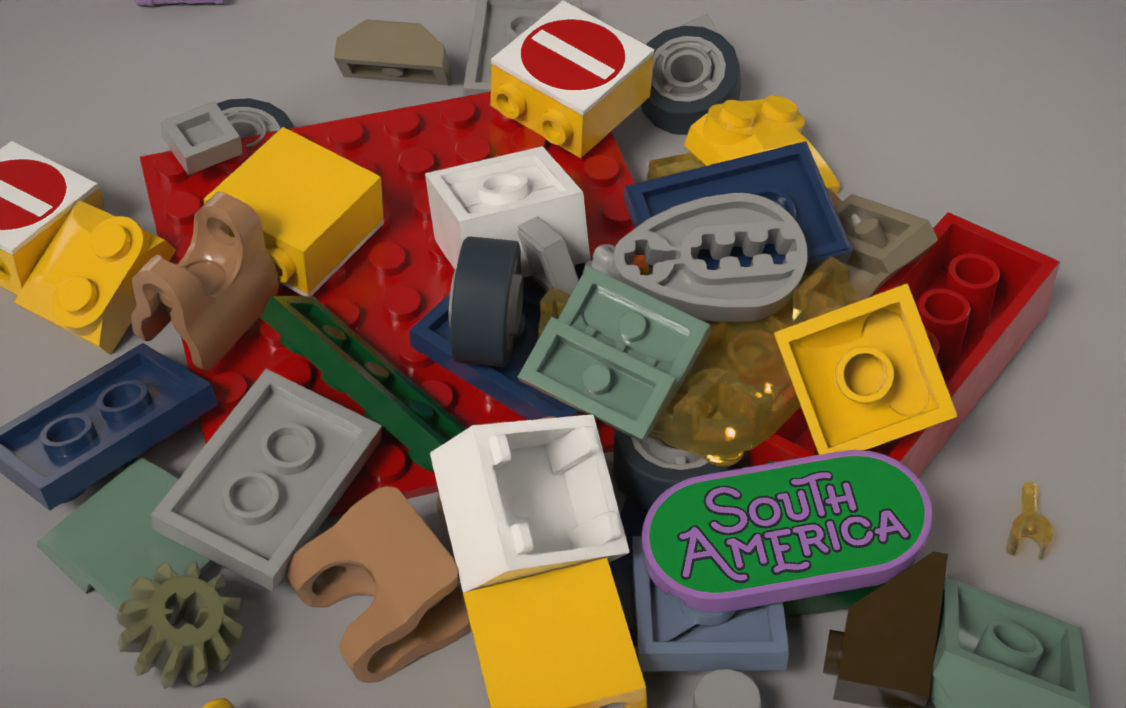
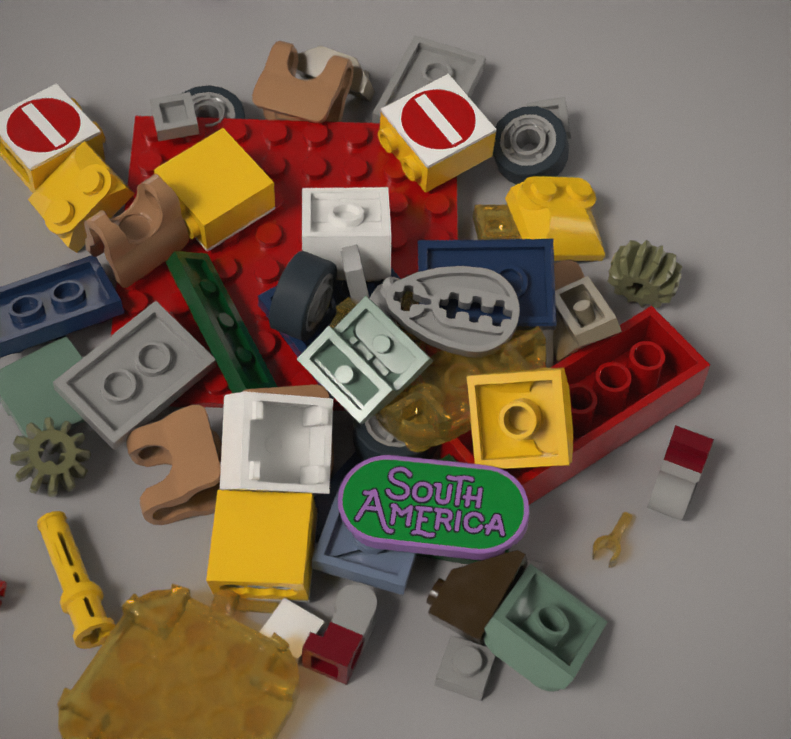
camera: 15 degrees right, 10 degrees up
(351, 87) = (310, 100): none -> medium nougat piece
(913, 180) = (644, 274): none -> olive gear
(1075, 411) = (680, 472): none -> leg

